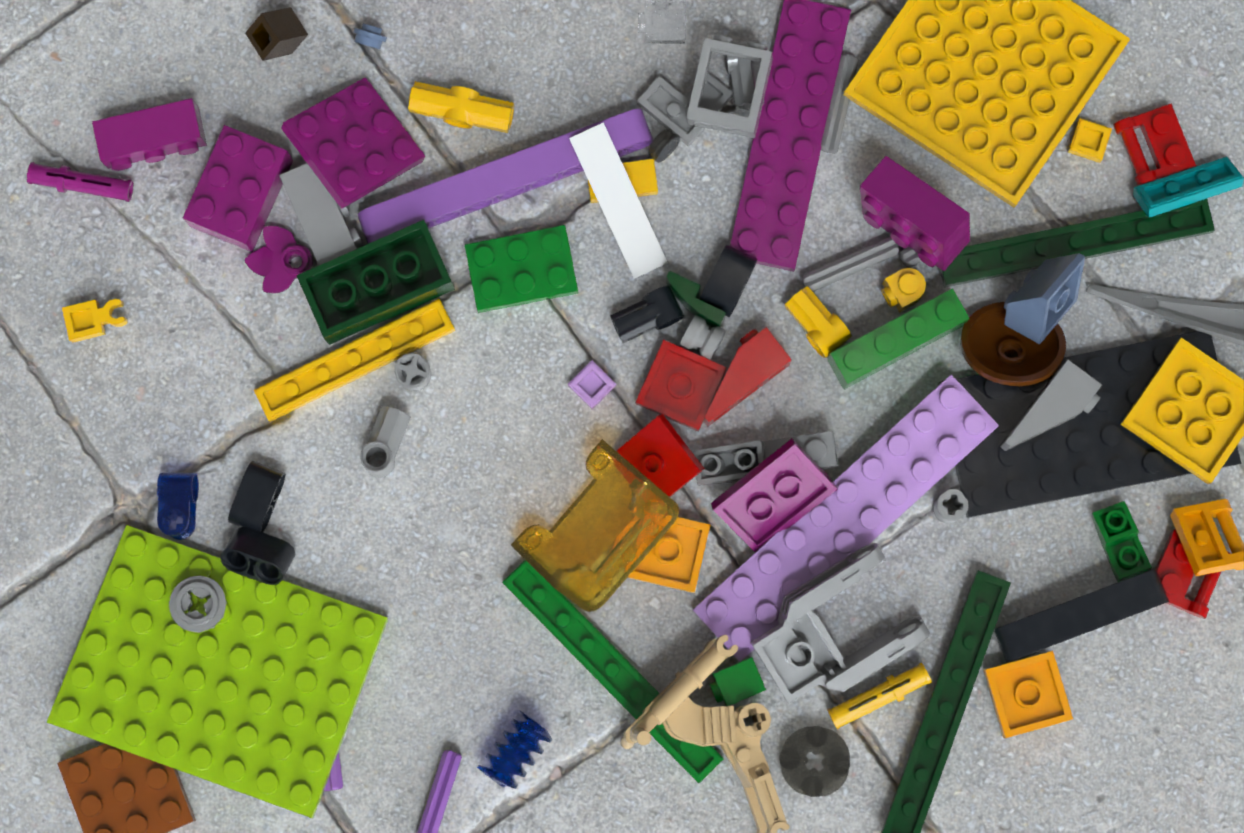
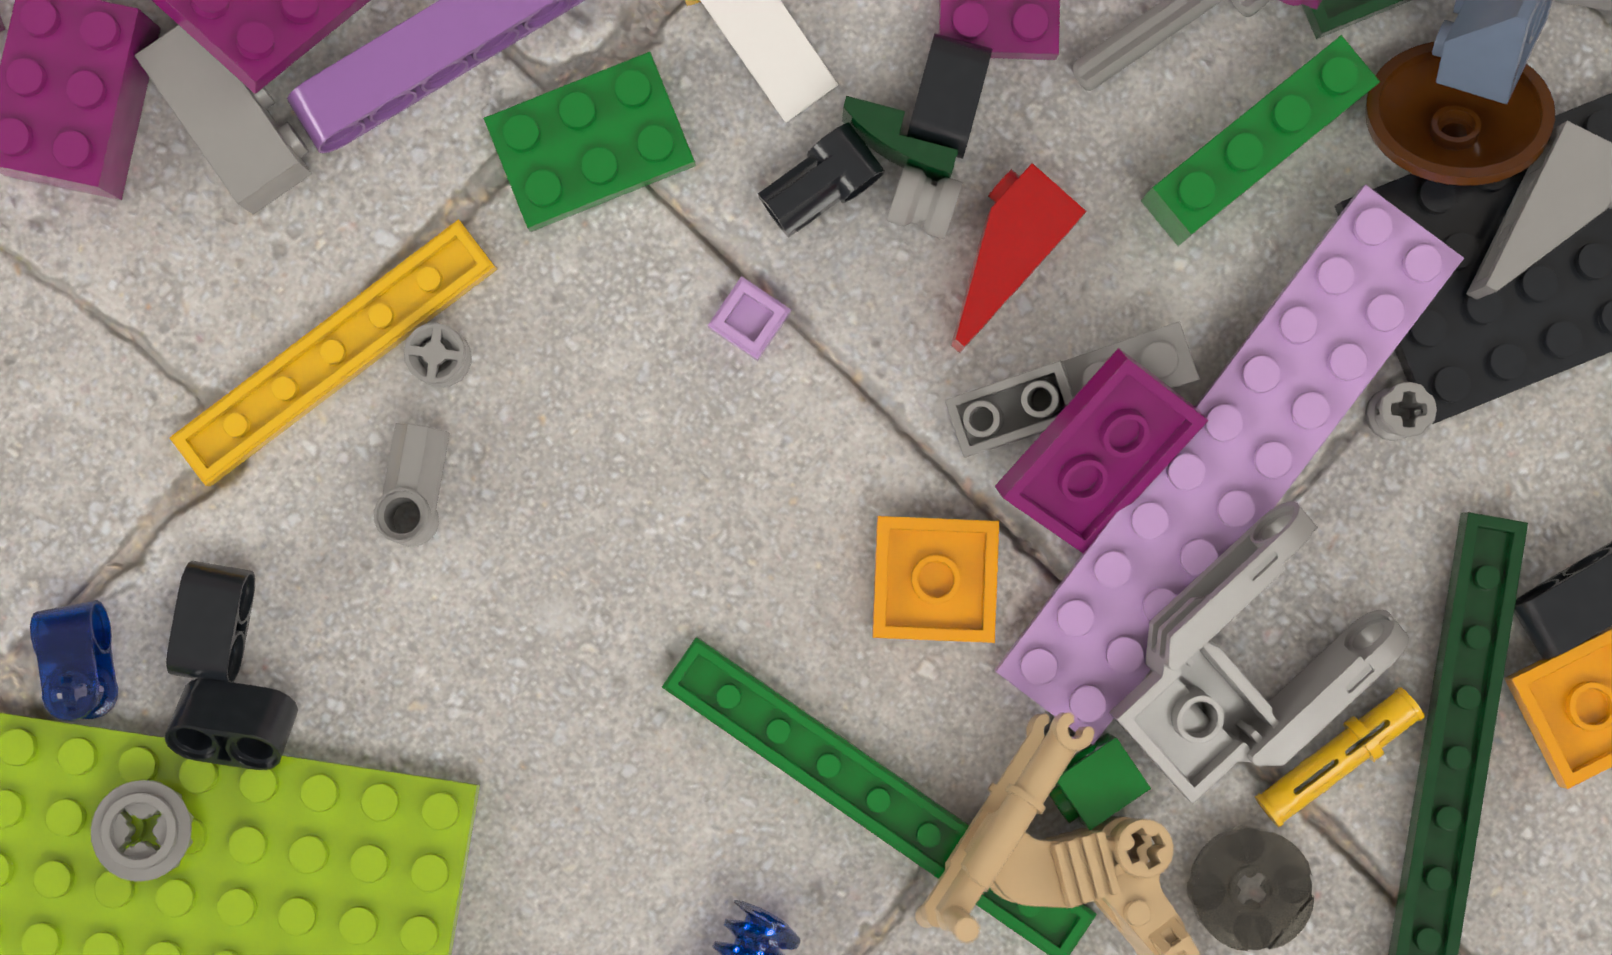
camera: 20 degrees left, 5 degrees up
(275, 259) = (163, 204): magenta plate -> none
(375, 282) = (340, 212): dark green brick -> none
(601, 532) = (814, 571): clear yellow windscreen -> none
(662, 456) = (888, 431): red plate -> none
(681, 385) = (902, 291): red plate -> none
(823, 329) = (1127, 148): yellow piece -> none
(903, 288) = (1251, 52): yellow plate -> none

